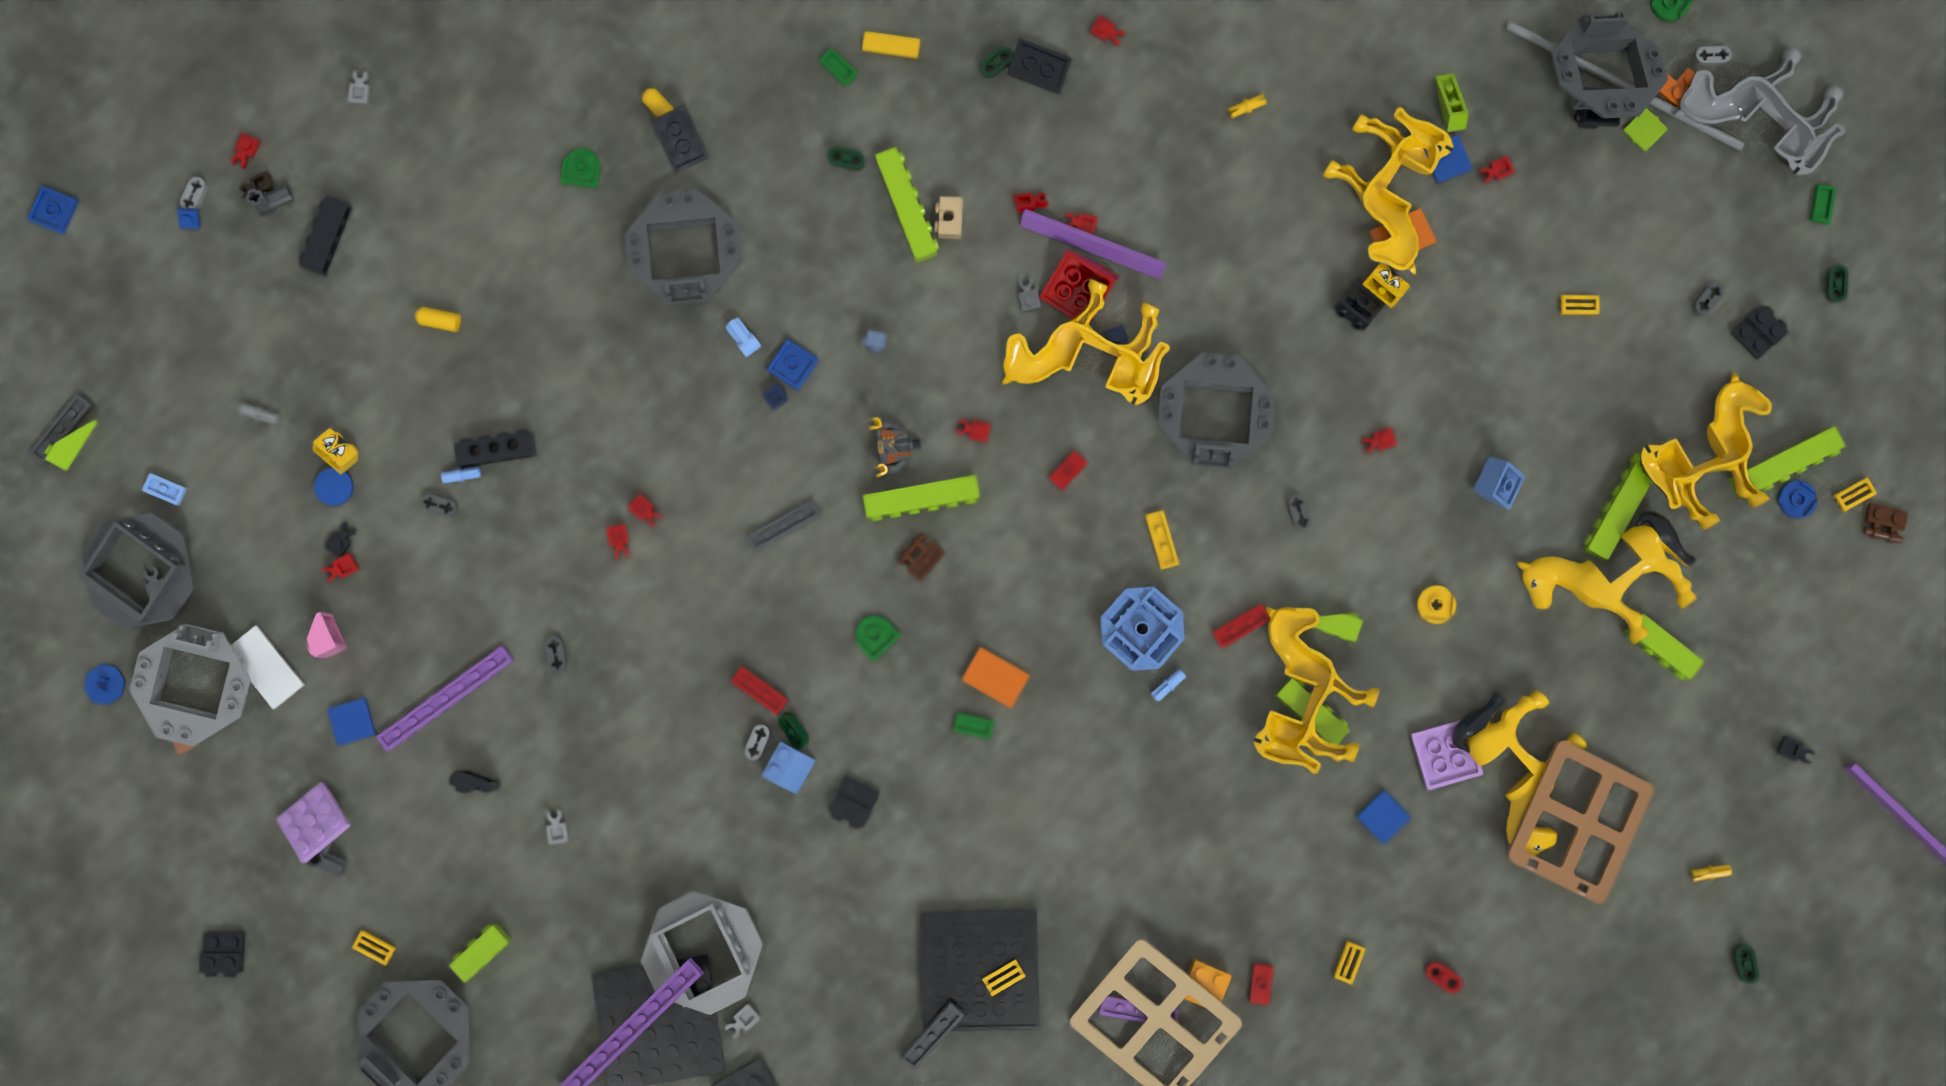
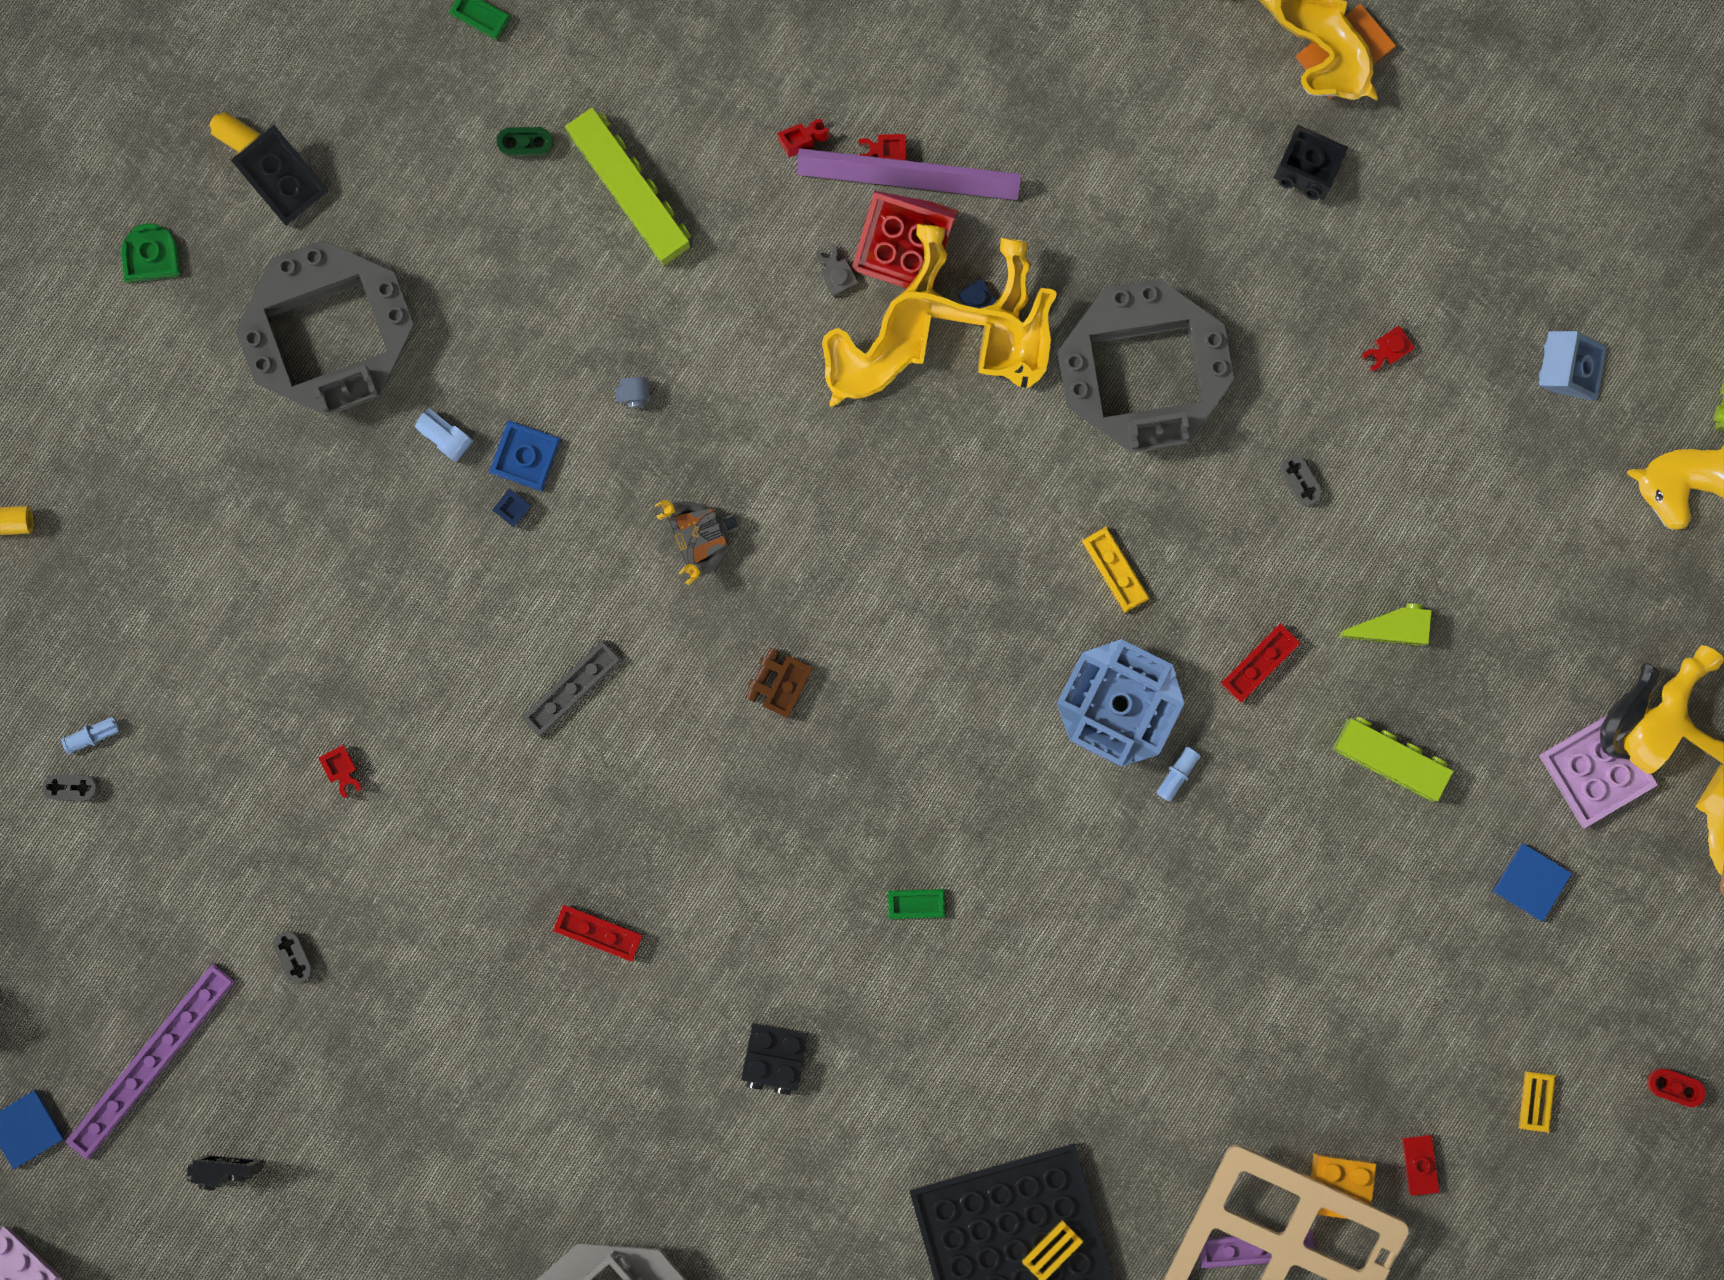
camera: 10 degrees left, 0 degrees up
(525, 449) = (173, 675): black brick -> none
(557, 831) = (361, 1209): light grey plate -> none
(643, 509) = (364, 717): red plate -> none
(753, 740) = (621, 1008): light grey beam -> none
(788, 767) = (667, 1032): medium blue slope -> none
(793, 730) = (661, 977): dark green plate -> none
(875, 636) = (743, 812): green tile -> none
(921, 497) = (757, 597): lime brick -> none
(950, 206) = (696, 172): tan brick -> none
(977, 431) = (813, 482): red plate -> none
(995, 677) = (930, 827): orange tile -> none
(1068, 470) = (956, 505): red plate -> none
(1315, 670) = (1376, 698): yellow animal -> none
(1386, 285) = (1340, 125): yellow brick -> none
(1444, 597) = (1518, 574): yellow plate -> none
(1596, 305) = (1597, 89): yellow tile -> none

